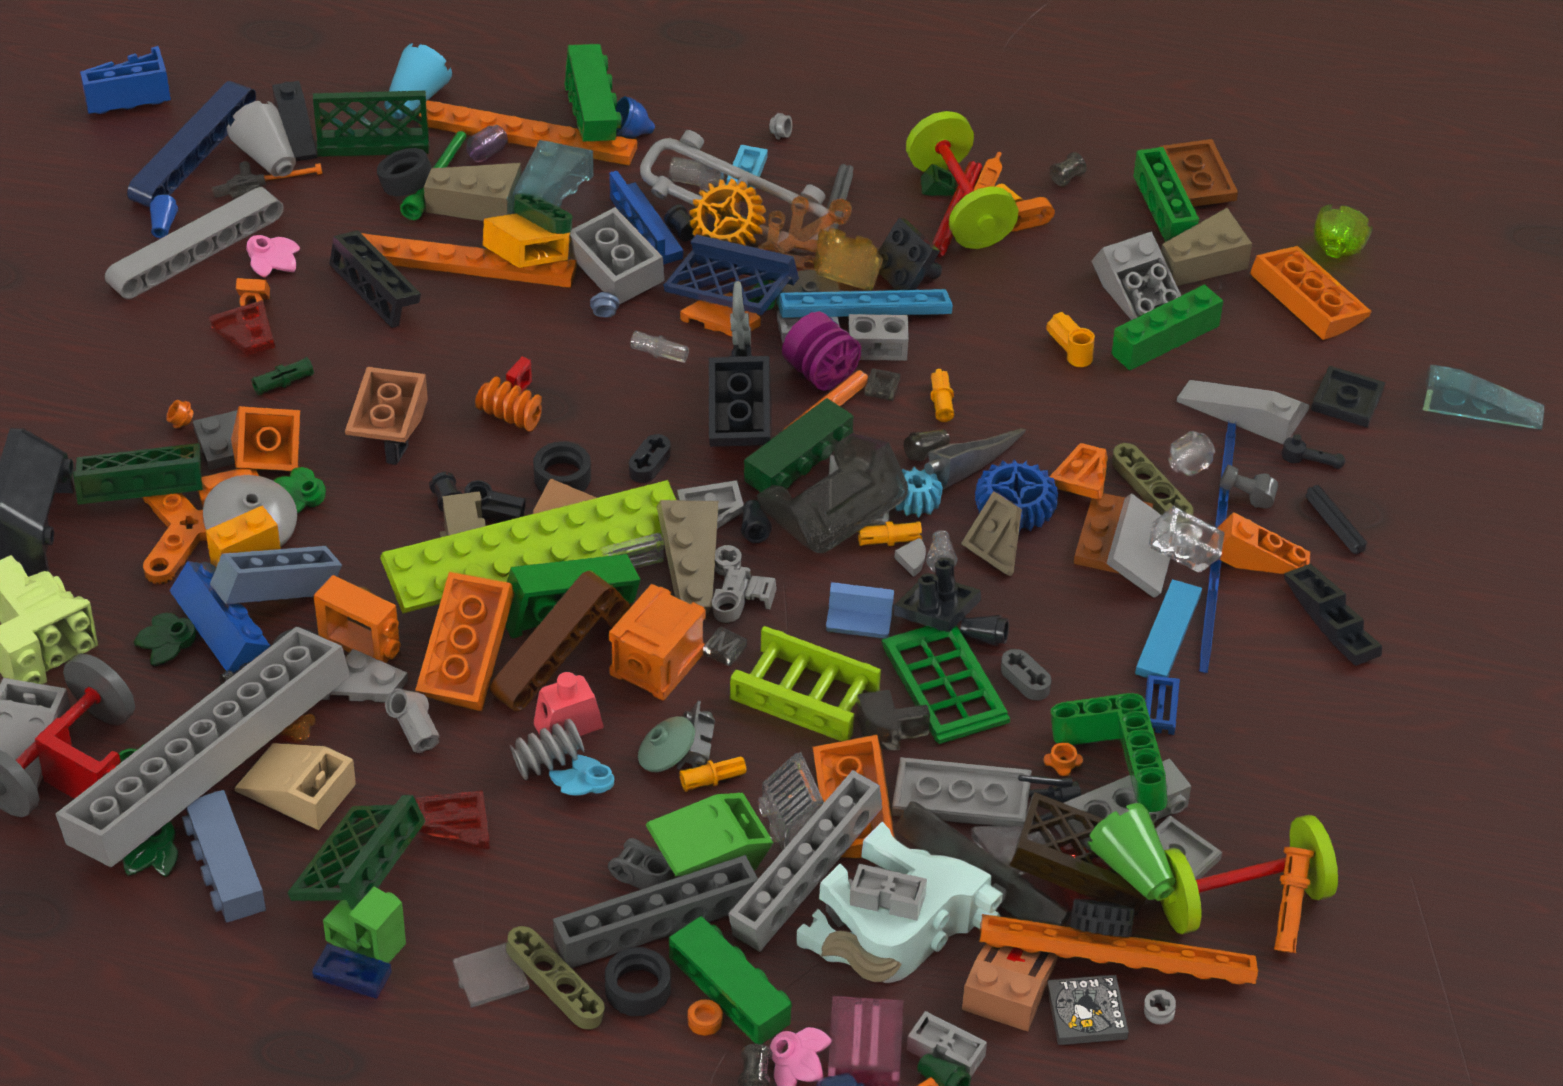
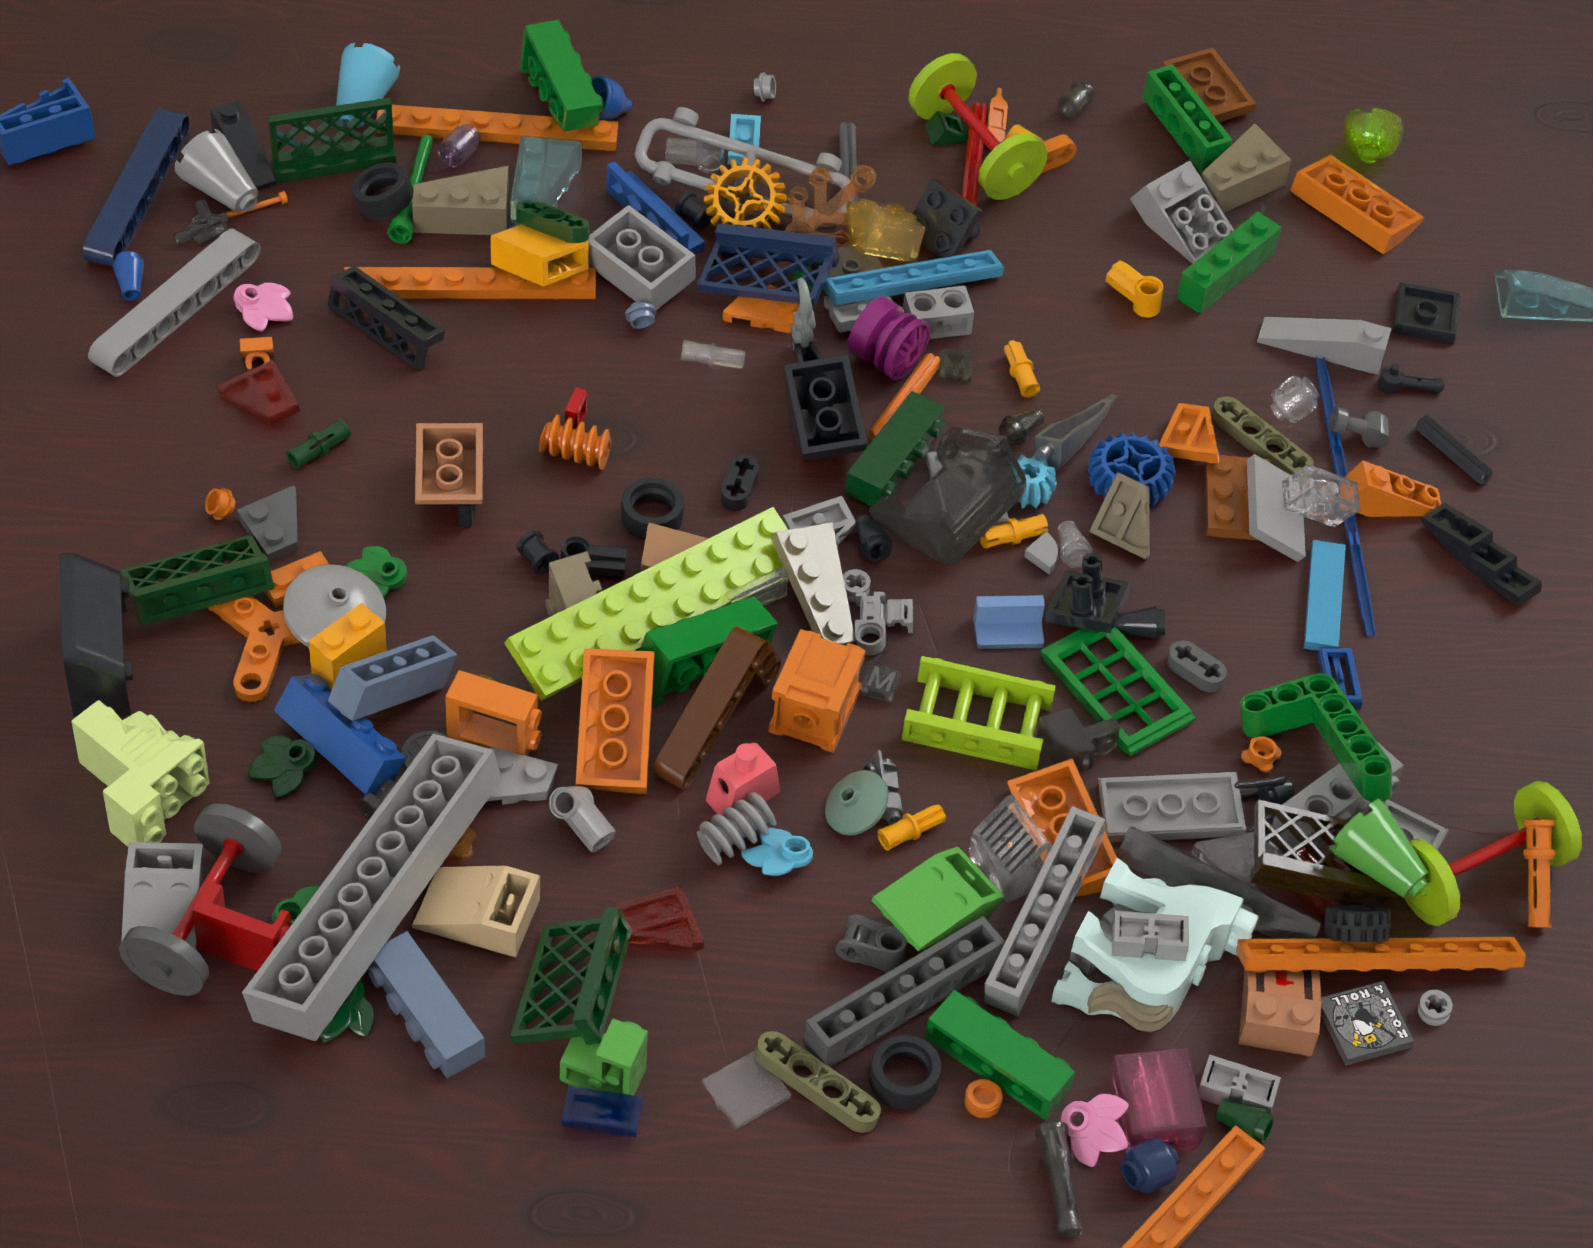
camera: 15 degrees left, 5 degrees up
(266, 438) = (328, 521): orange slope -> none

